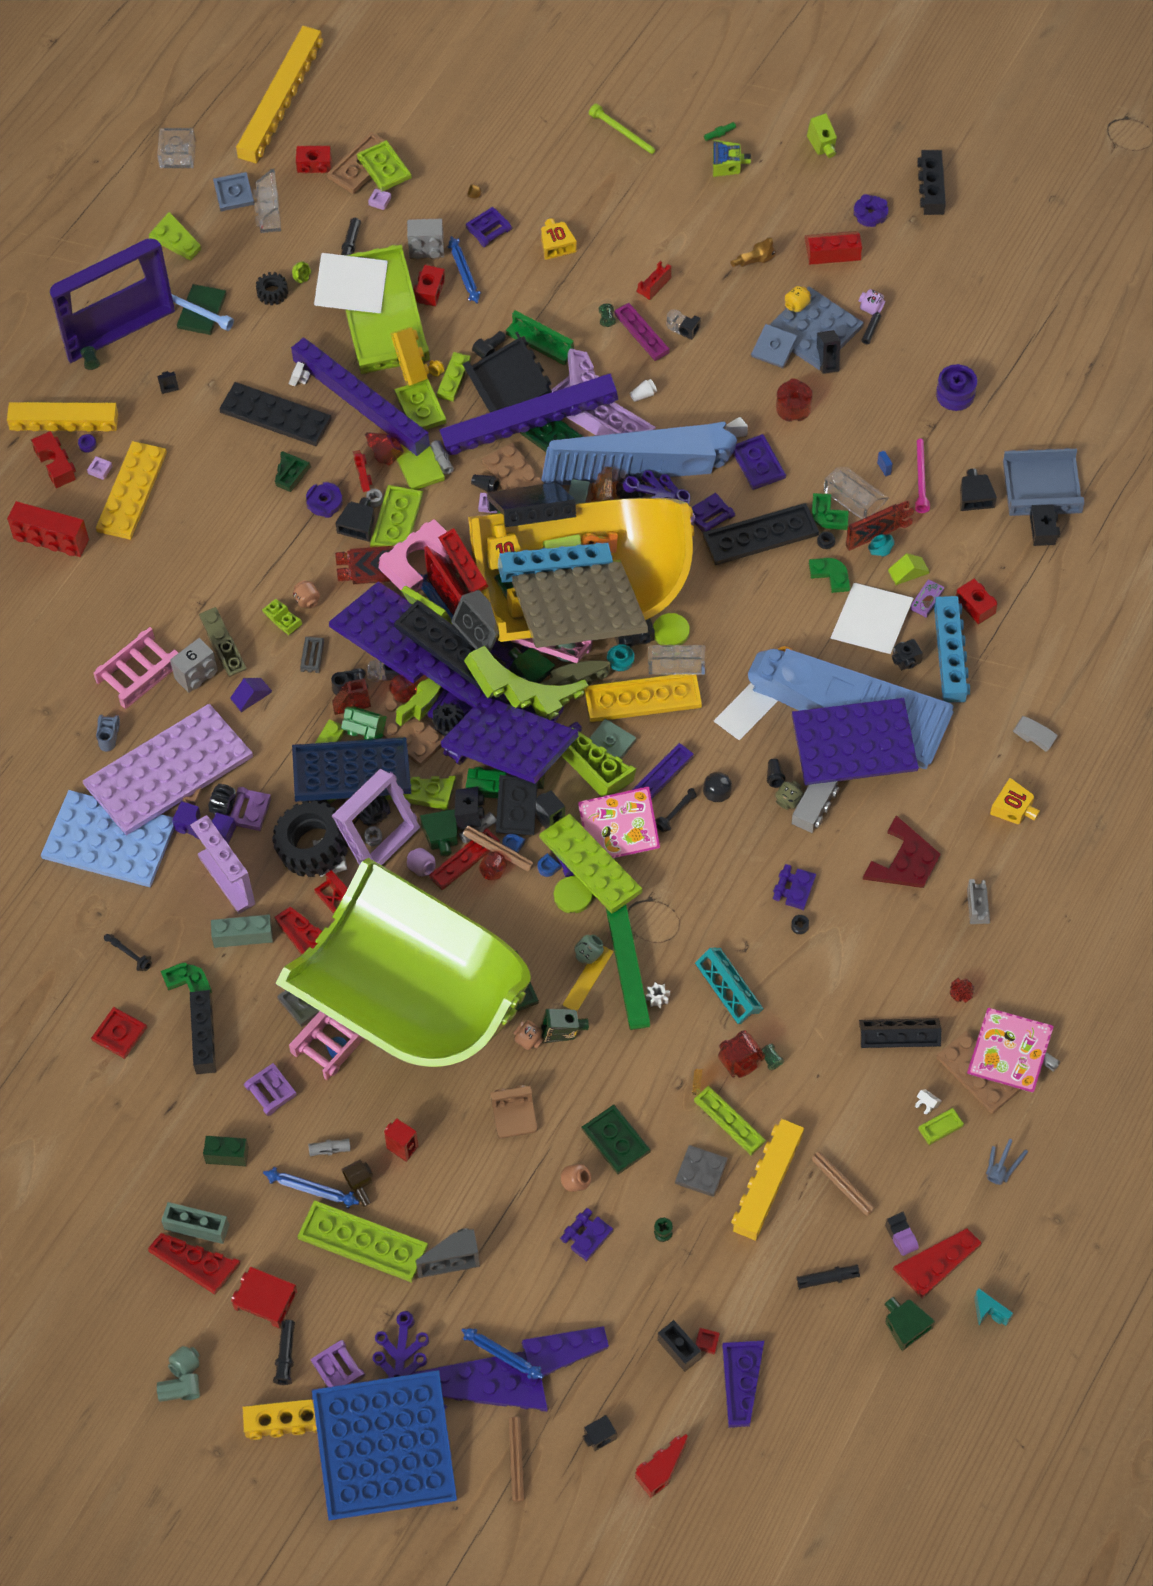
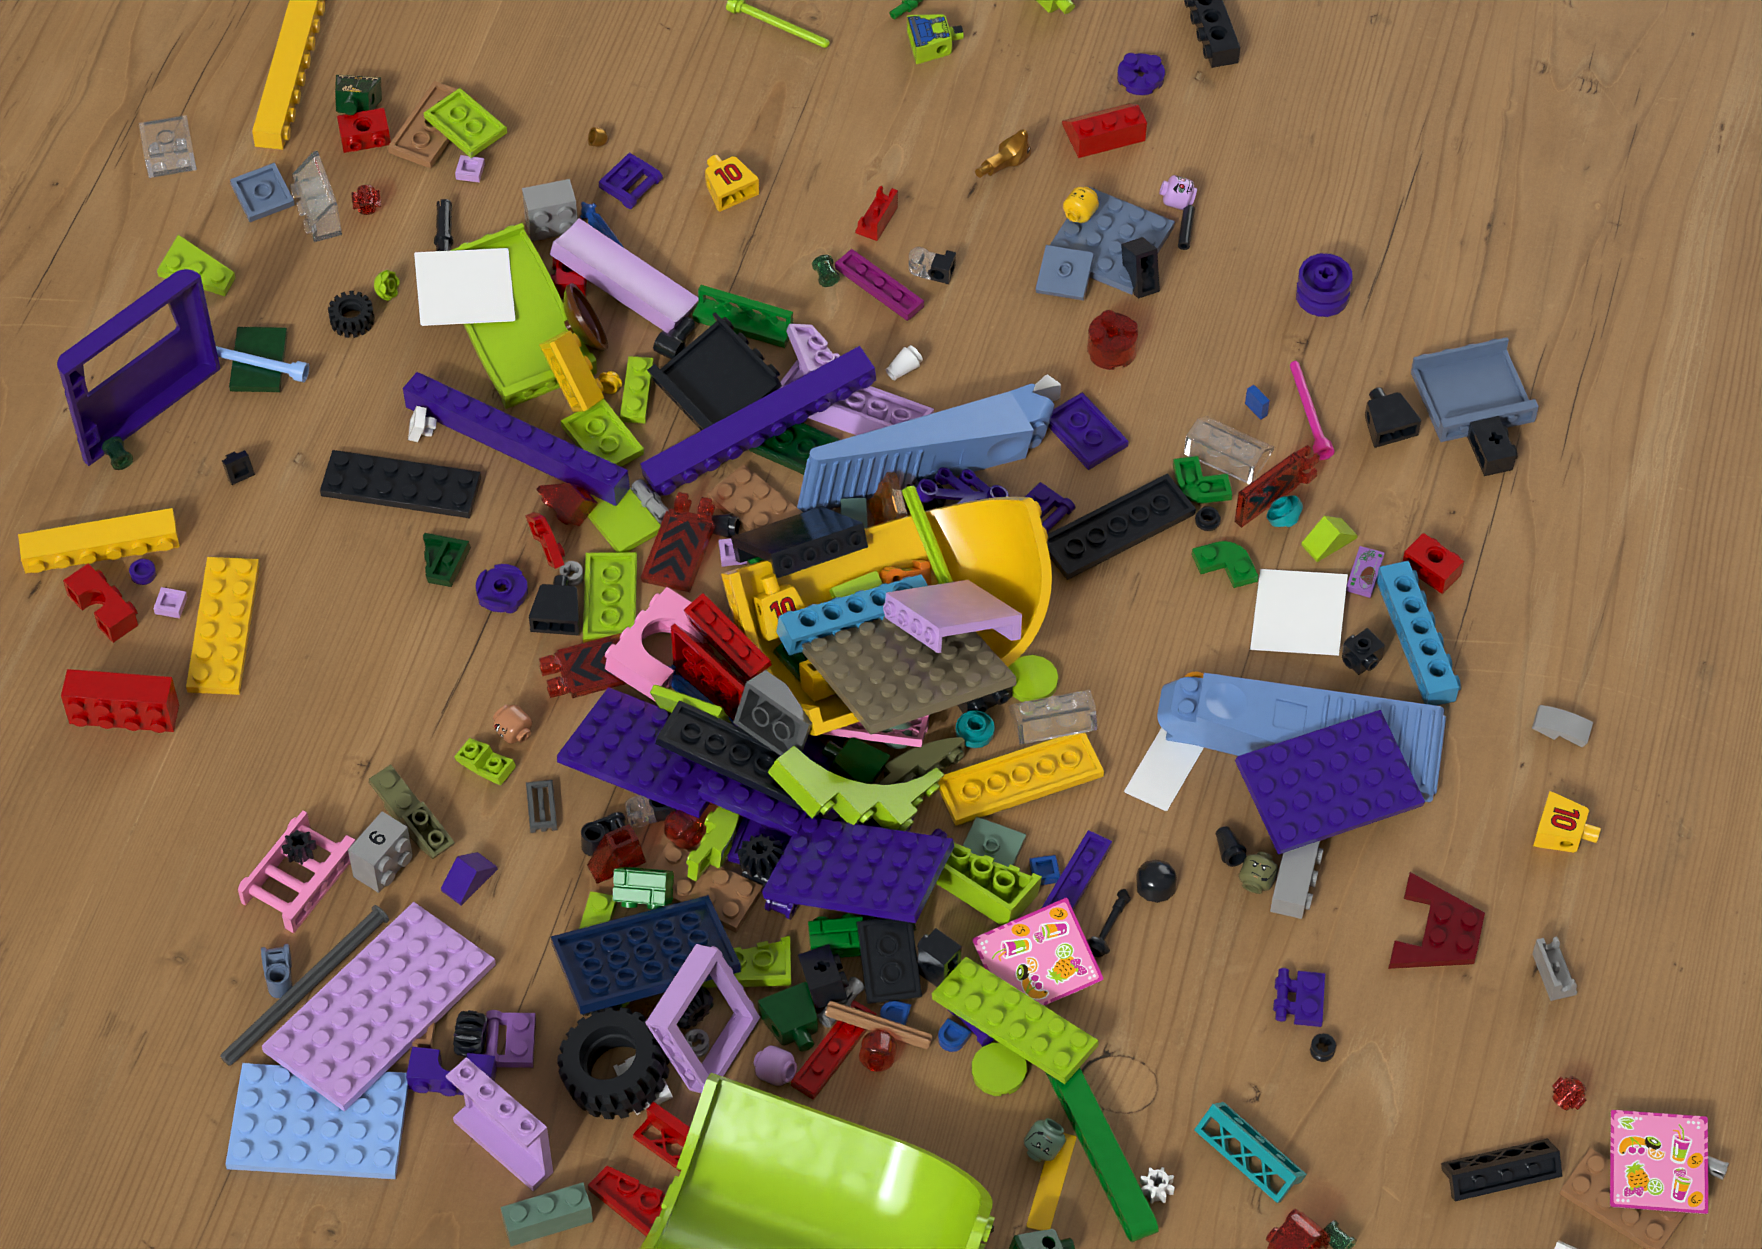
camera: 15 degrees left, 5 degrees down
(122, 746) = (304, 985): none -> dark grey axle
(140, 651) = (299, 847): none -> black gear
(302, 209) = (366, 199): none -> clear red gear
(315, 132) = (357, 93): none -> dark green torso
(427, 319) = (583, 319): none -> reddish brown dish
(453, 491) = (680, 544): none -> clear red tile
(464, 294) = (623, 276): none -> lavender arch
(617, 572) = (950, 610): none -> lavender panel
(621, 529) = (926, 535): none -> lime axle
(643, 764) = (1045, 867): none -> blue tile

